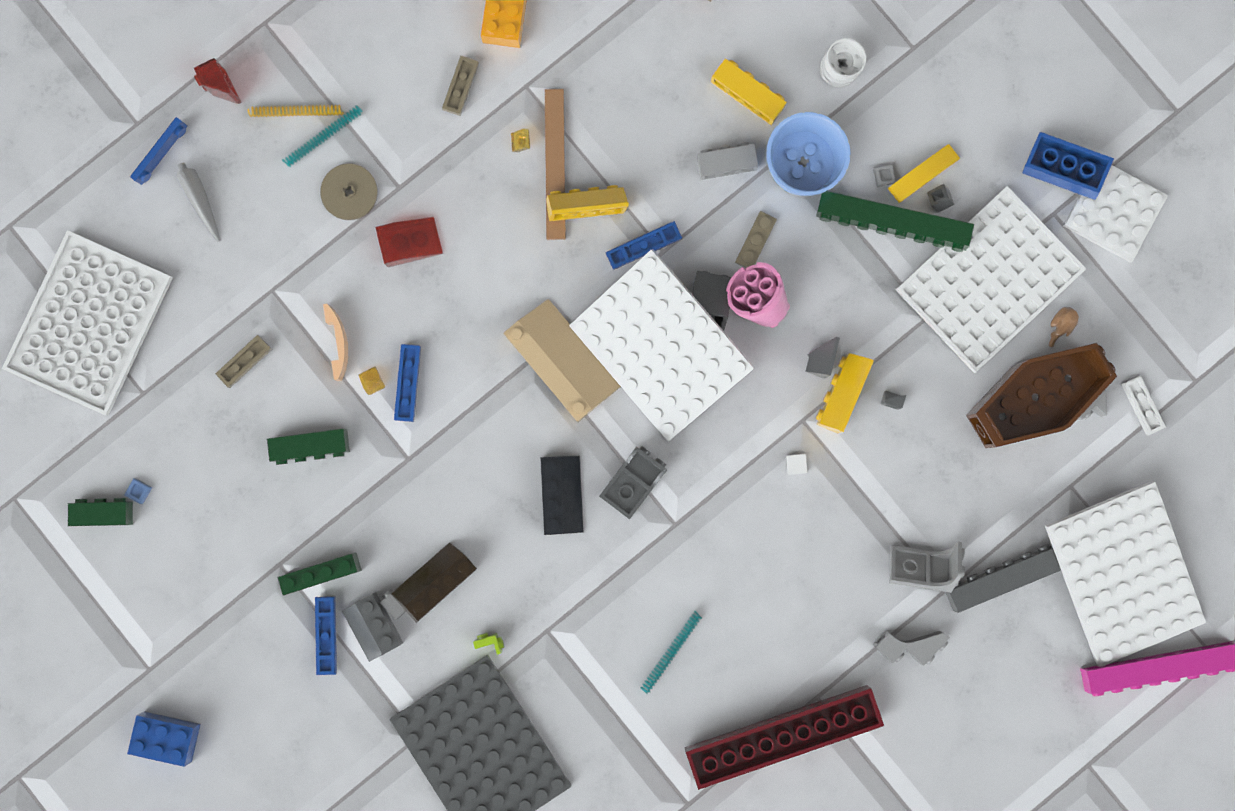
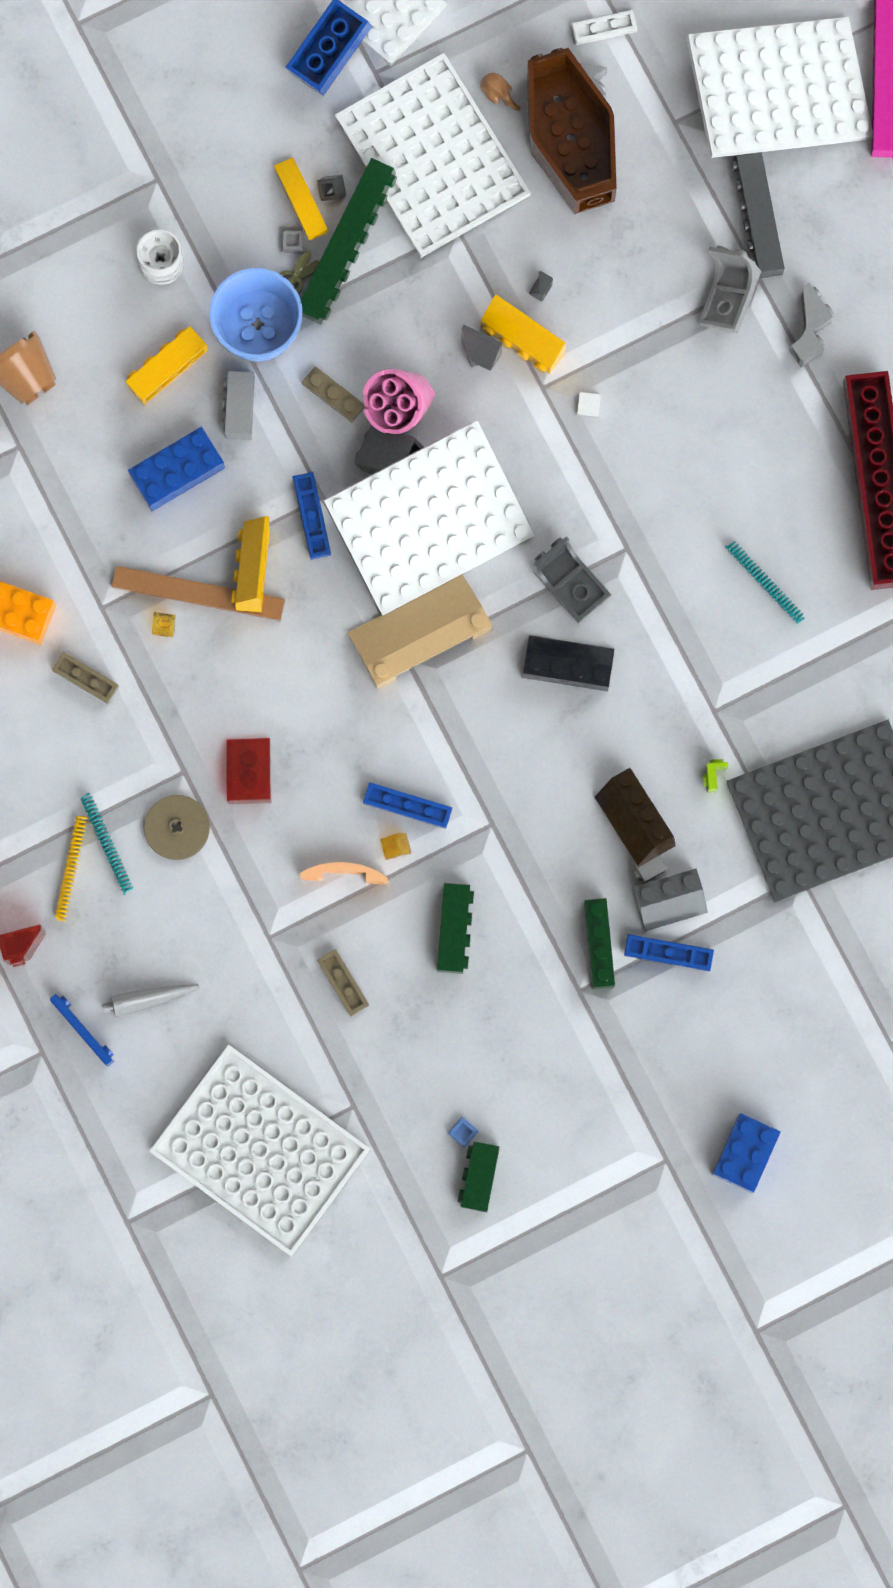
camera: 80 degrees left, 5 degrees down
(658, 120) = (176, 469): none -> blue brick
(857, 187) = (300, 271): none -> olive piece

